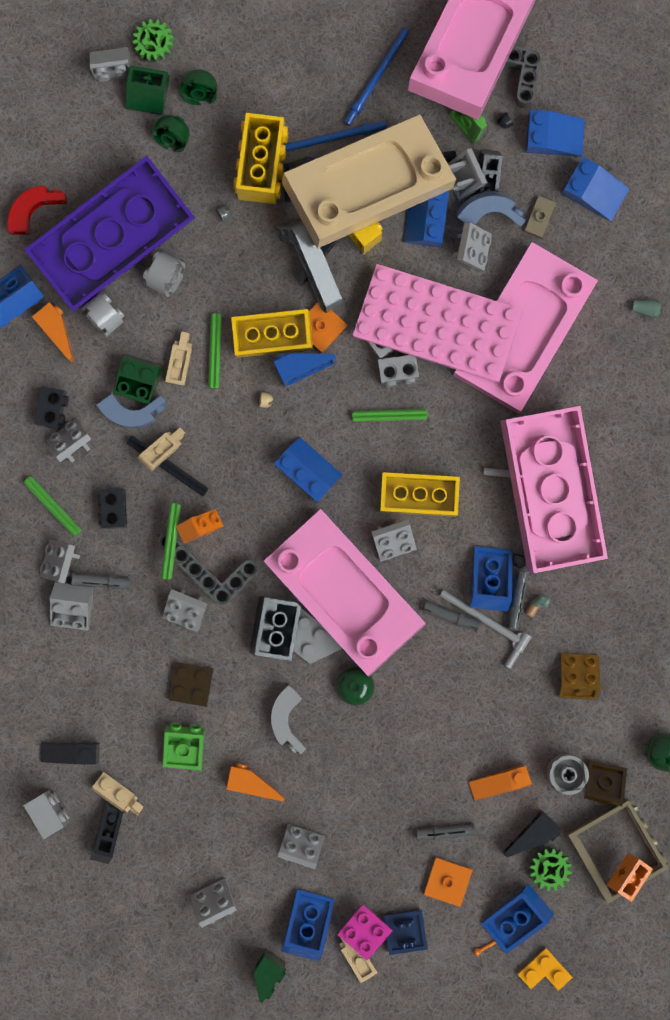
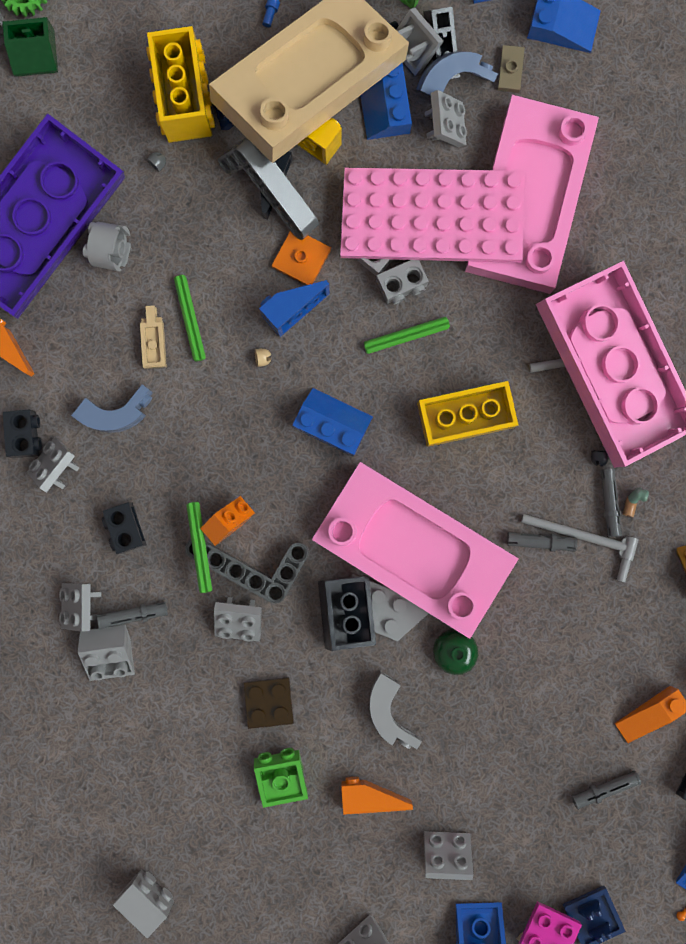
camera: 15 degrees left, 0 degrees up
(52, 506) = (54, 544): bright green axle -> none
(70, 753) = (154, 822): black slope -> none
(102, 314) = (50, 311): light grey brick -> none
(107, 834) = (221, 900): black slope -> none
(116, 794) = (219, 854): tan hinge -> none
(137, 379) = (110, 373): dark green slope -> none
(161, 449) = (159, 445): tan hinge -> none
(171, 132) = (71, 86): dark green cylinder -> none
(171, 468) = (172, 462): black axle -> none
(198, 86) = (86, 25): dark green cylinder -> none
(272, 333) = (248, 278): yellow brick -> none
(367, 128) = (248, 47): blue bar -> none
(394, 540) = (453, 473): light grey plate -> none
(448, 882) = (624, 845): orange plate -> none
(491, 579) = (575, 487): blue slope -> none
(647, 307) = (662, 134): sand green cone -> none

